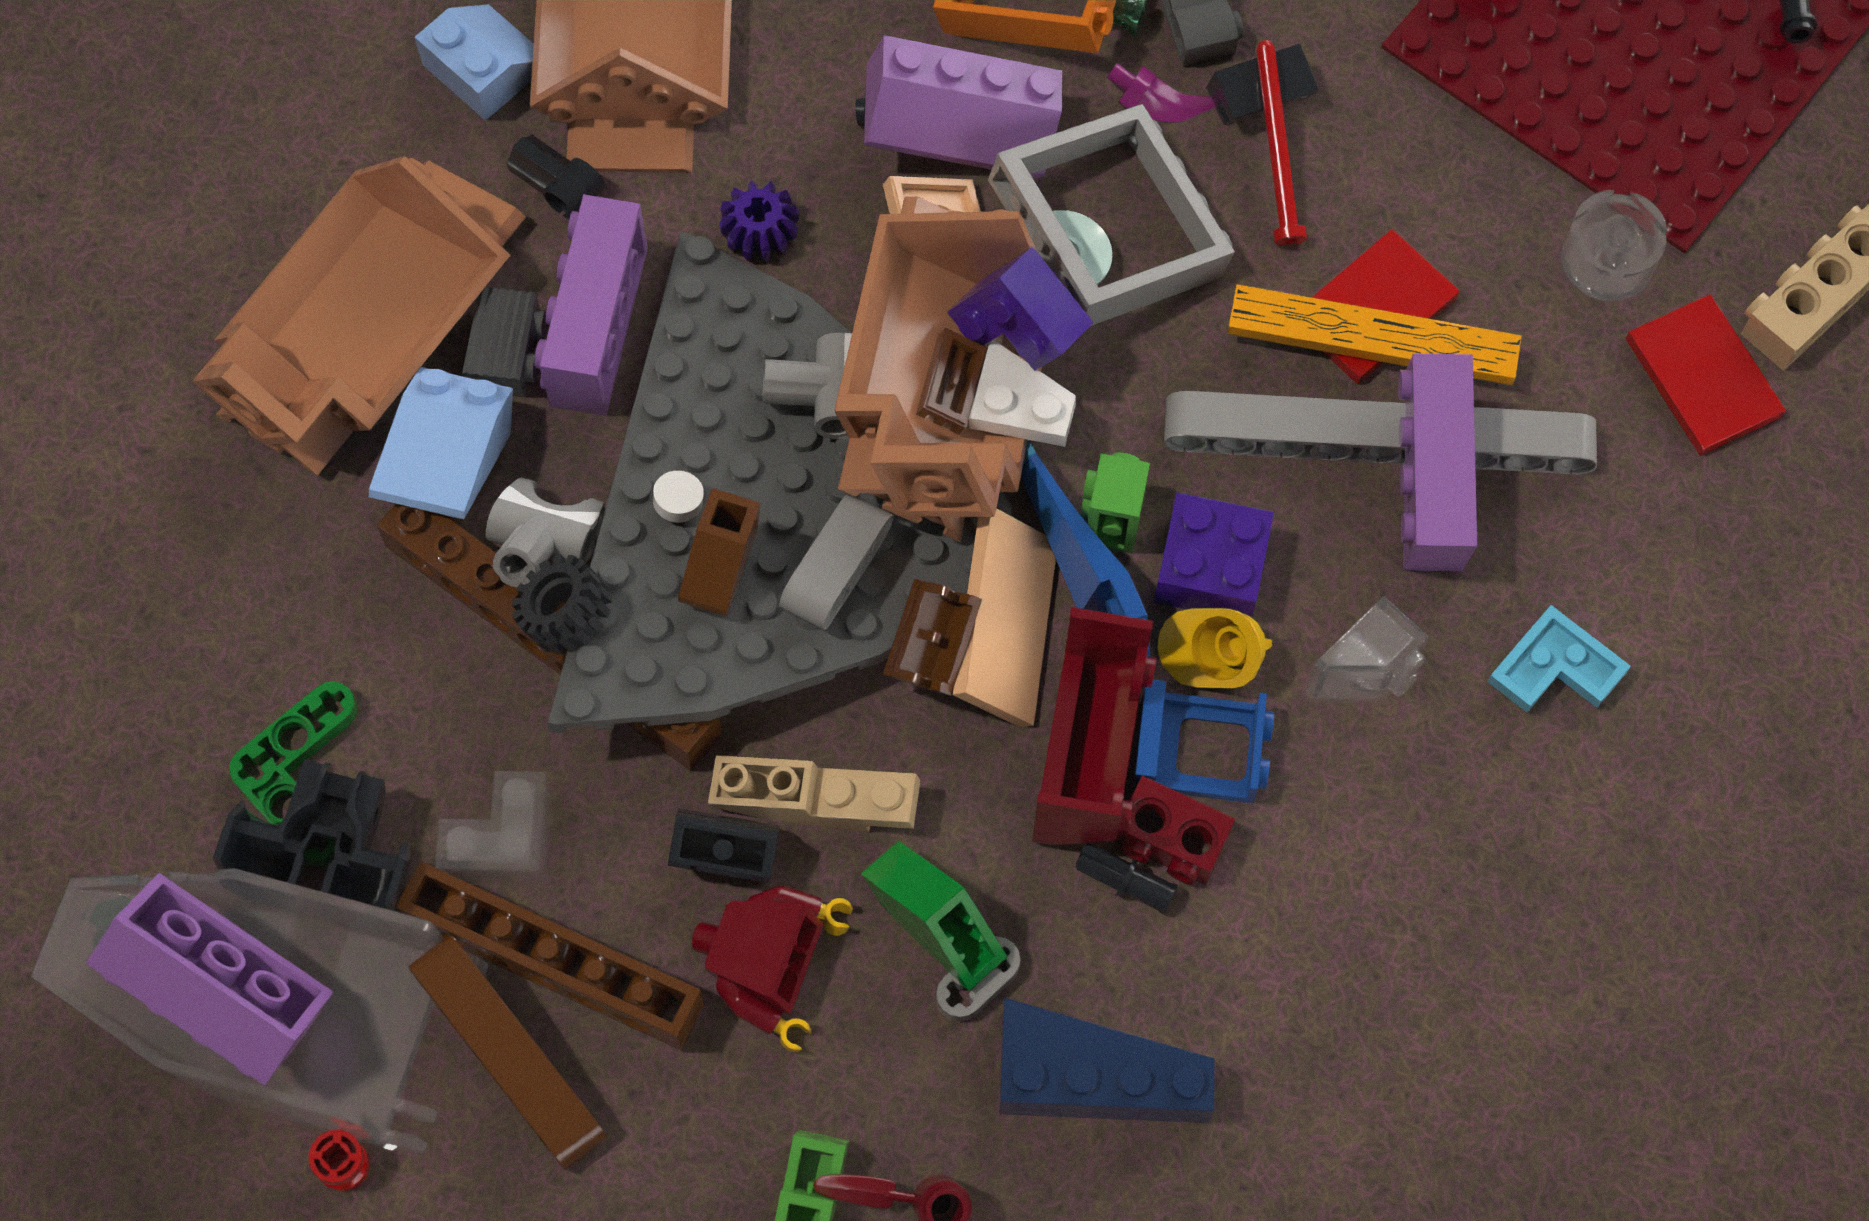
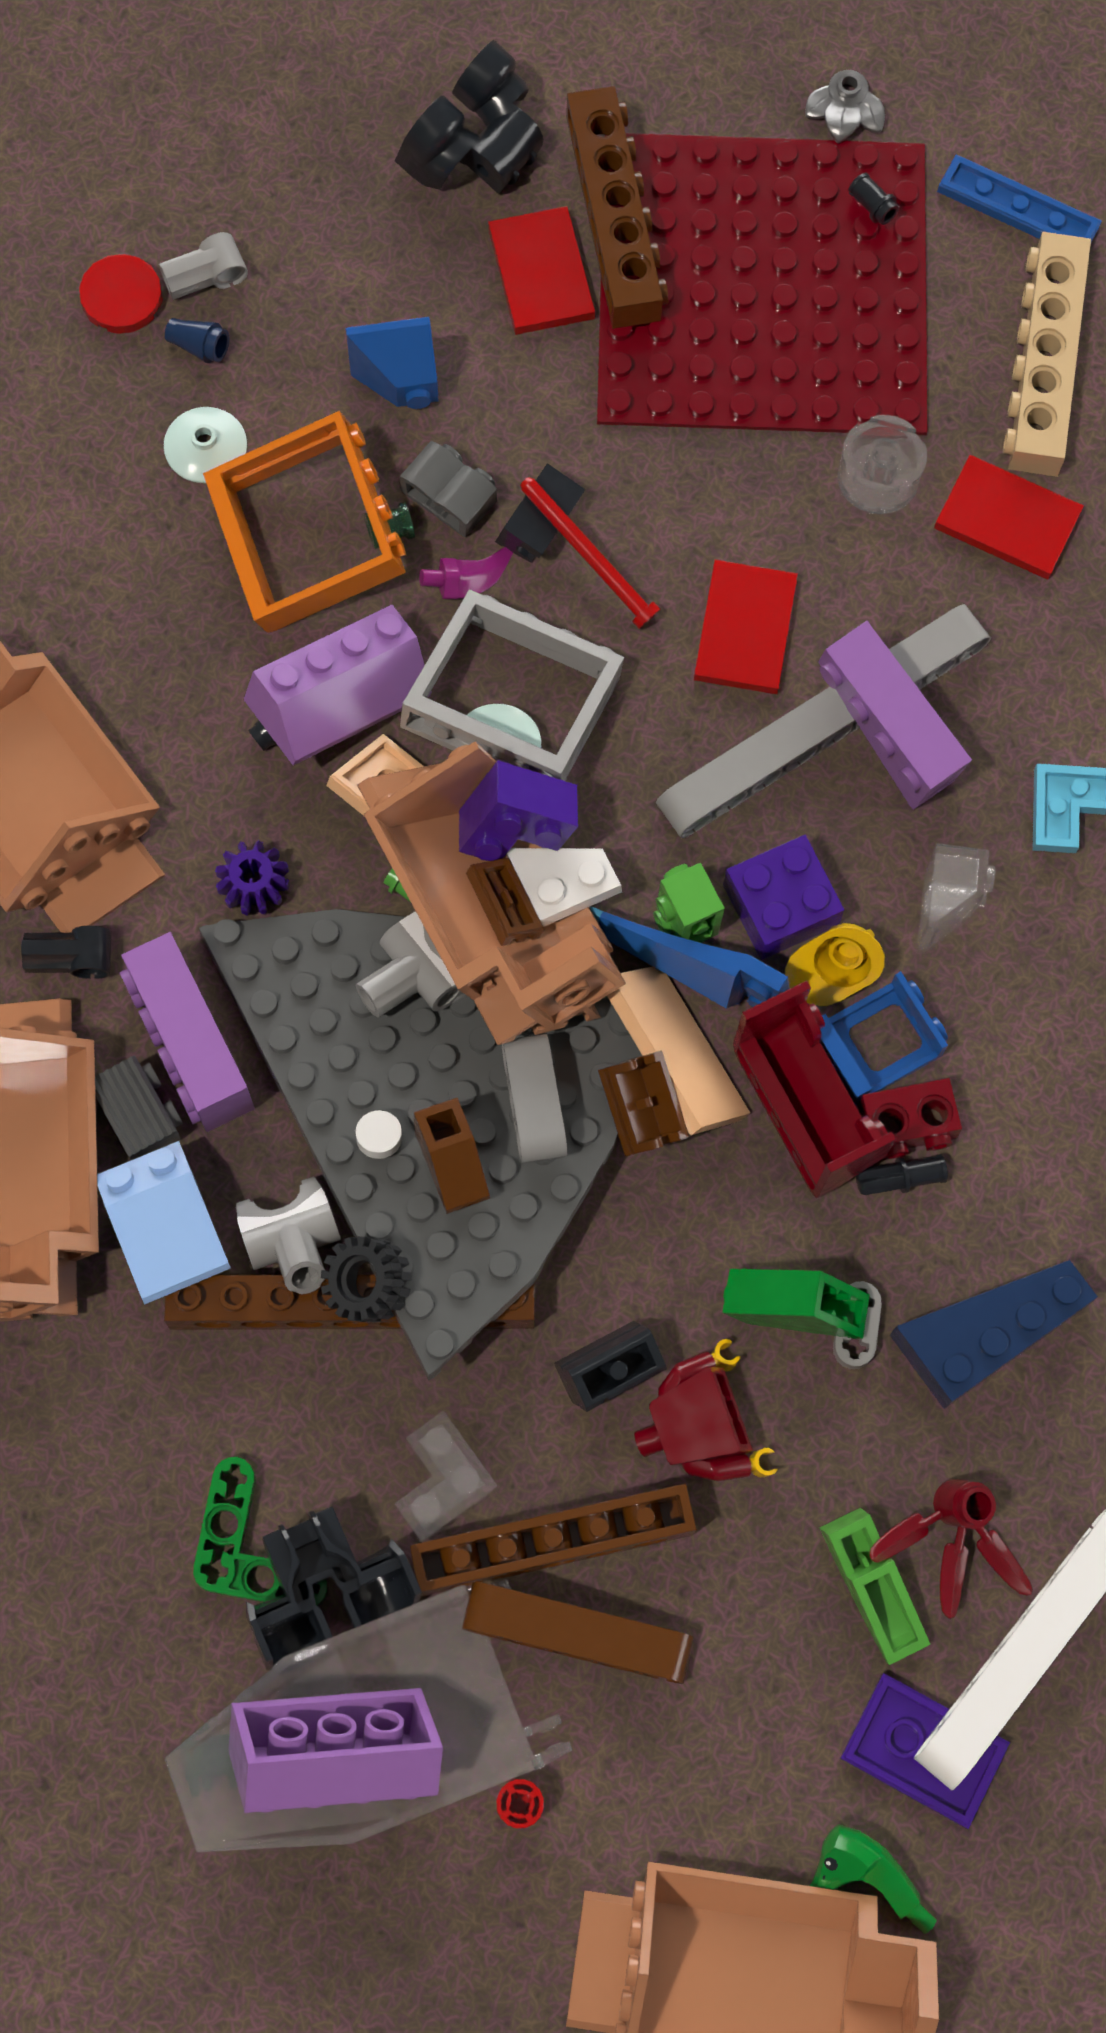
camera: 40 degrees left, 5 degrees up
(814, 795) = (640, 1279): tan slope -> none
(1368, 332) = (764, 650): light orange tile -> none

